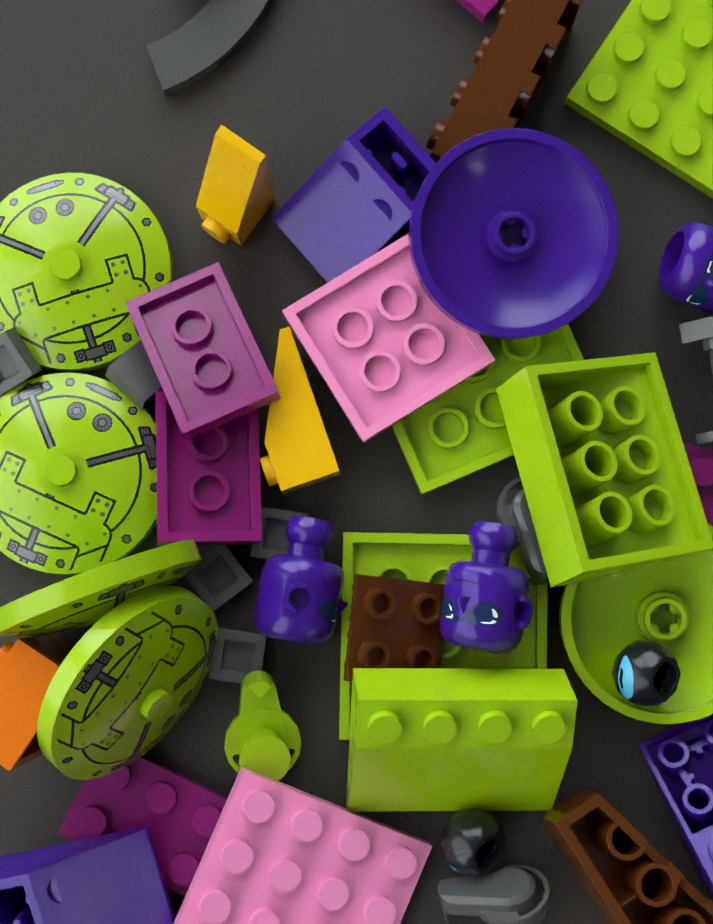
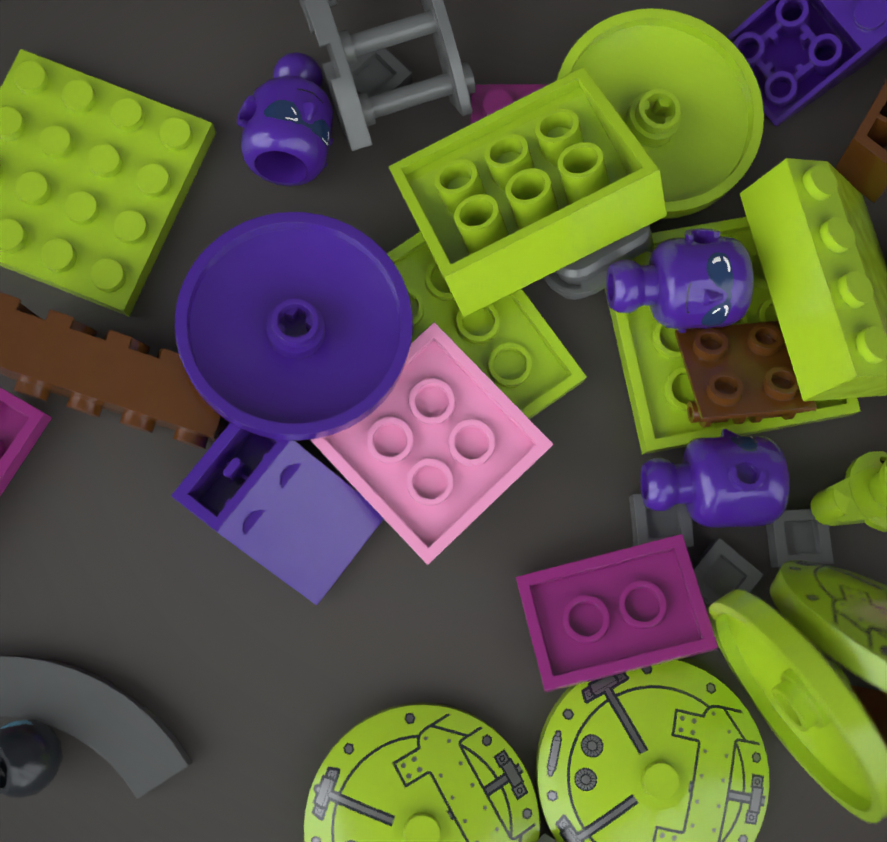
camera: 110 degrees left, 5 degrees down
(135, 376) = (523, 713): dark grey tile -> none
(202, 351) = (491, 647): magenta plate -> none
(234, 188) = (297, 651): yellow slope -> none
(294, 430) = (554, 524): yellow slope -> none
(646, 673) = (723, 113): black piece -> none

